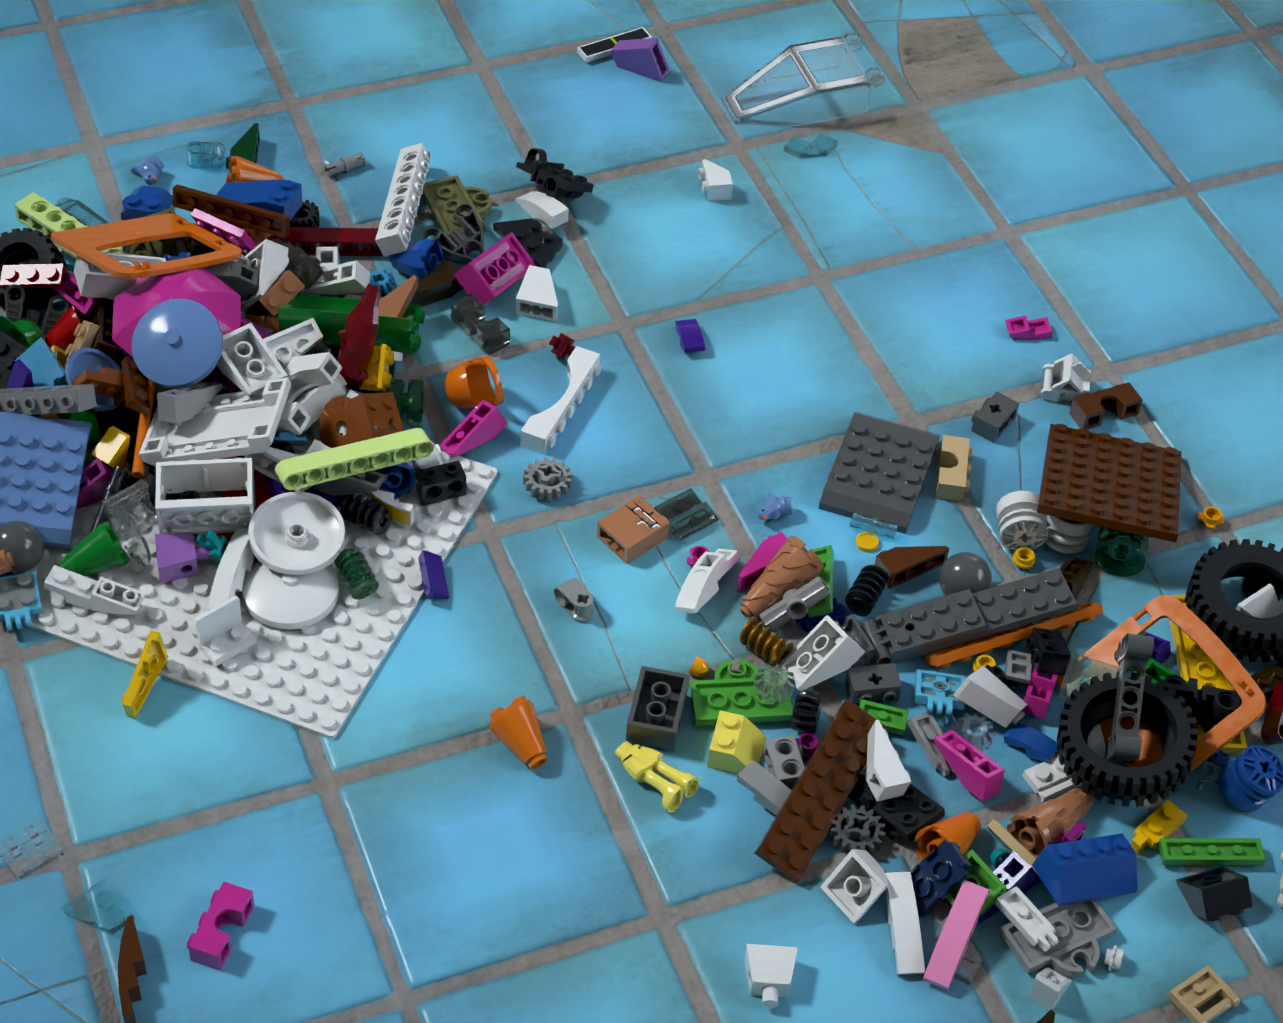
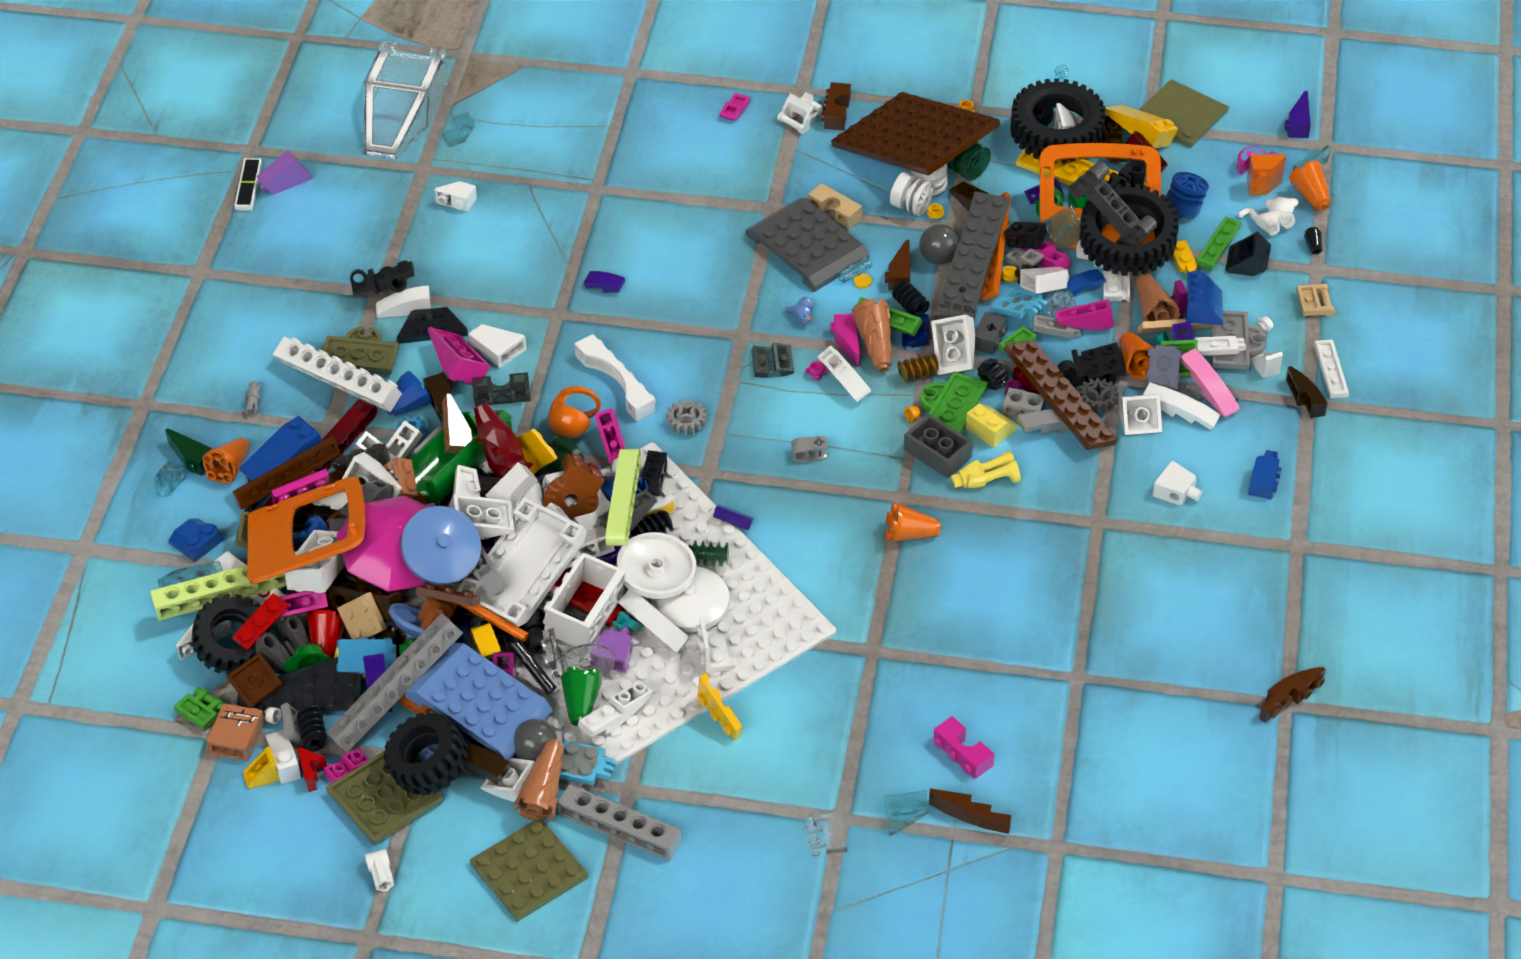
camera: 55 degrees left, 0 degrees up
(149, 170) = (157, 520): medium blue animal -> none
(471, 226) = (406, 357): dark grey connector -> none
(562, 345) = (562, 353): dark red gear -> none
(633, 529) = (768, 392): nougat brick -> none
(774, 684) = (962, 377): clear gear -> none
(804, 596) = (903, 334): light grey piece -> none
(884, 769) = (1068, 351): white slope -> none
(994, 416) = (805, 163): dark grey brick -> none

